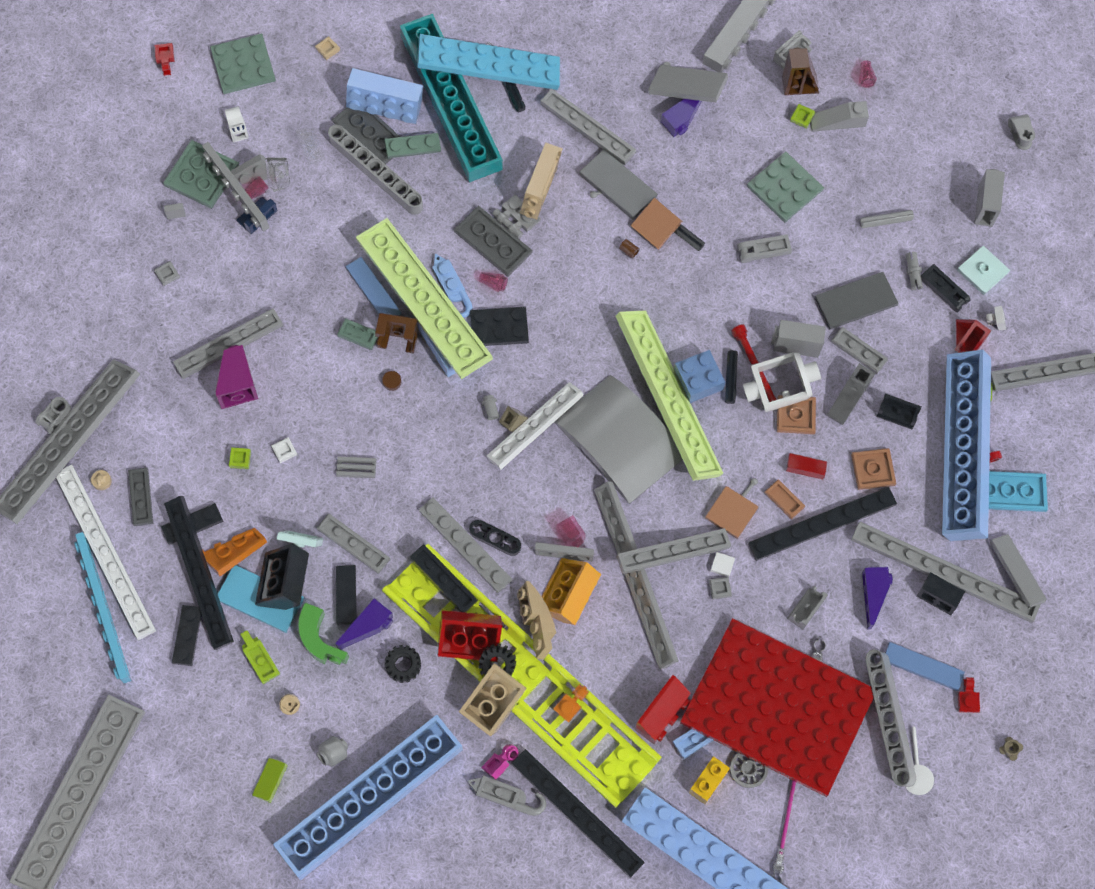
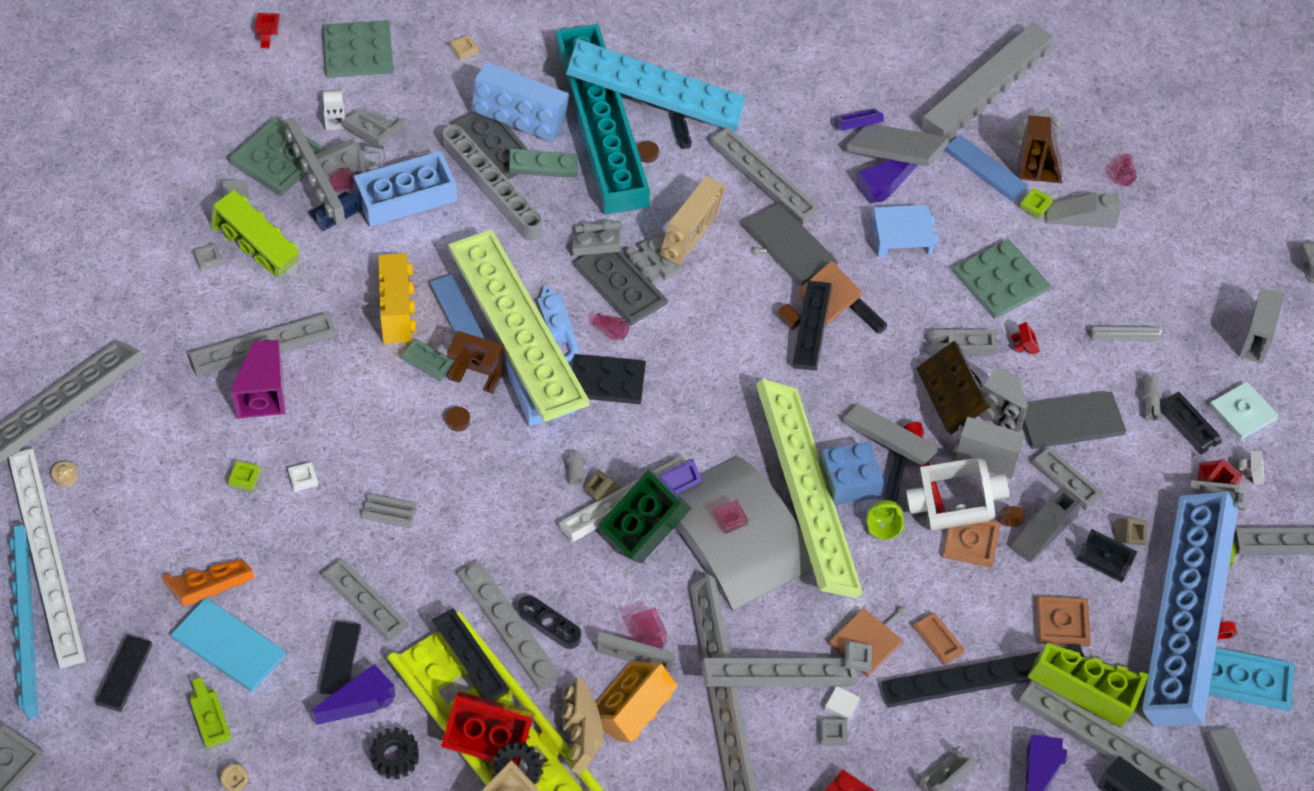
camera: 10 degrees right, 15 degrees down
(52, 414) = (26, 388): light grey piece -> none
(140, 496) = (109, 501): dark grey tile -> none
(198, 572) = (157, 599): black plate -> none
(200, 249) = (254, 233): none -> lime wedge
(201, 519) = (165, 542): black plate -> none
(271, 134) = (373, 126): none -> light grey wing
(282, 577) = (263, 621): black slope -> none
(300, 539) = (296, 578): light aqua plate -> none
(309, 188) = (405, 188): none -> light blue brick
(309, 625) = (282, 688): bright green arch -> none
(322, 285) = (395, 298): none -> yellow wedge
(468, 210) = (596, 243): none -> light grey plate
(492, 119) = (648, 151): none -> reddish brown tile
(551, 443) = (644, 517): none -> dark green brick
(568, 407) = (682, 476): none -> dark purple tile
(617, 433) = (731, 516): none -> clear pink plate
(648, 255) = (812, 325): none -> black plate
(653, 63) = (859, 119): none -> dark purple tile
(704, 157) = (903, 228): none -> light blue panel
(722, 338) = (890, 435): none -> light grey tile
(729, 526) = (858, 656): none -> light grey tile
(732, 405) = (885, 513): none -> lime hair
(759, 90) = (986, 168): none -> medium blue tile
(764, 292) = (953, 387): none -> dark brown plate
(804, 297) = (1005, 400): none -> light grey slope
(806, 466) = (974, 604): red slope -> none
(813, 238) = (1027, 339): none -> red tile
(823, 391) = (1011, 516): none -> reddish brown tile
(902, 519) = (1089, 683): none -> lime wedge
(913, 387) = (1131, 531): none -> dark tan slope
(974, 344) = (1237, 492): none -> light grey hinge

